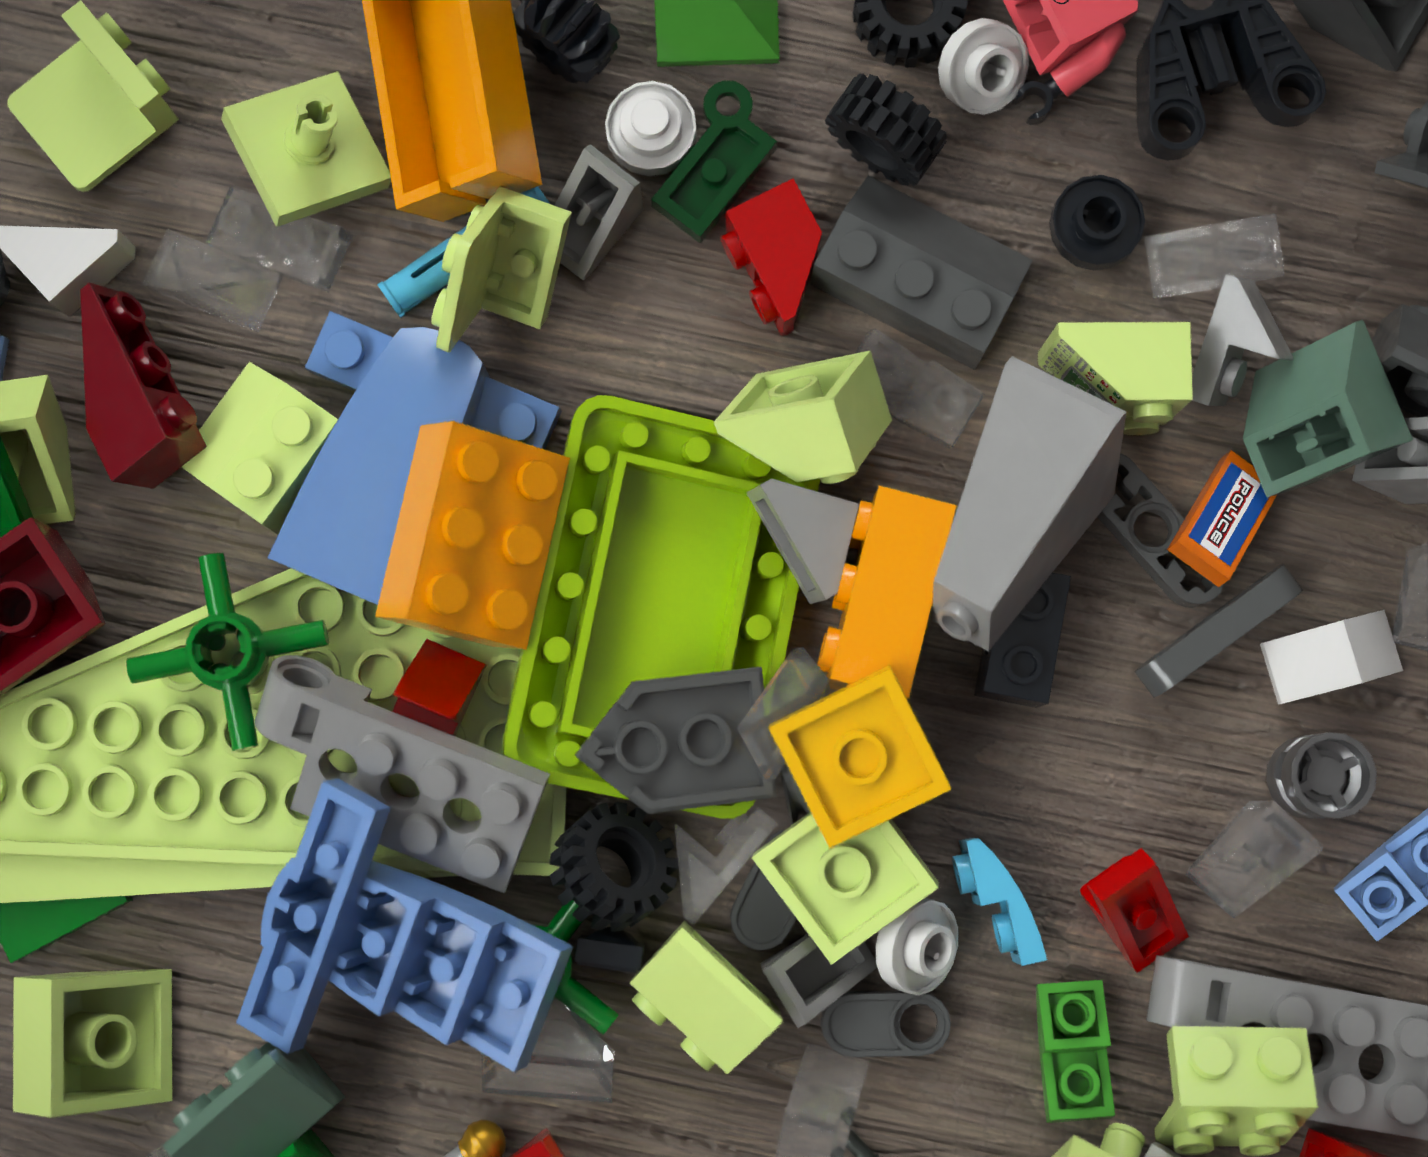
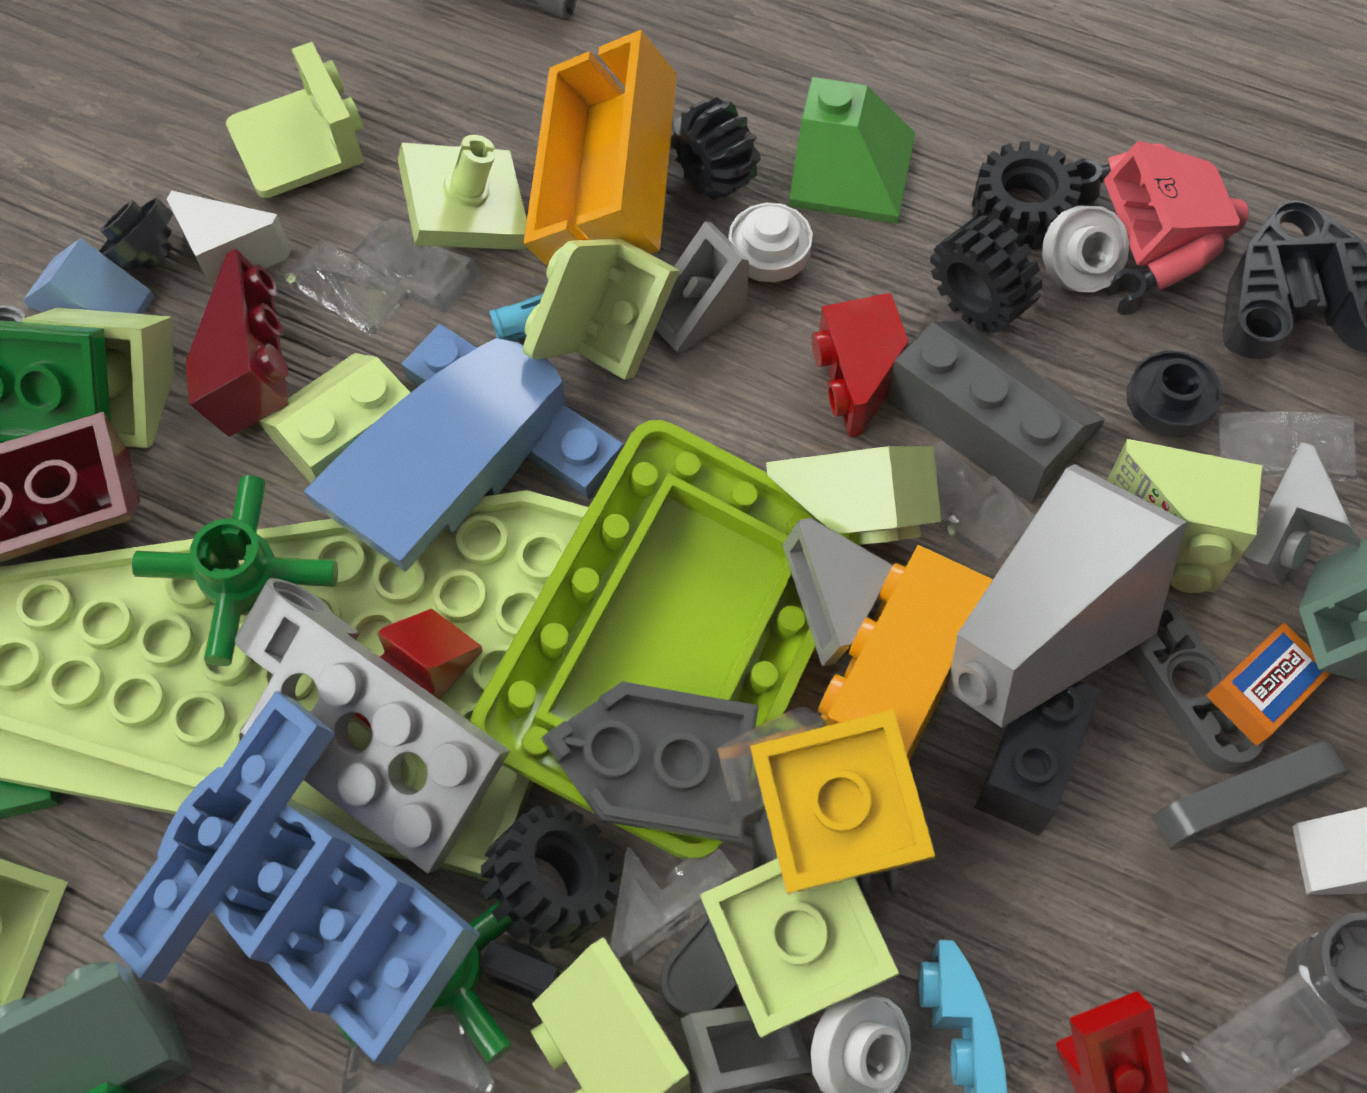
camera: 15 degrees right, 20 degrees down
(473, 535) = (503, 512): light orange brick -> none
(716, 166) = (827, 277): dark green hinge -> none

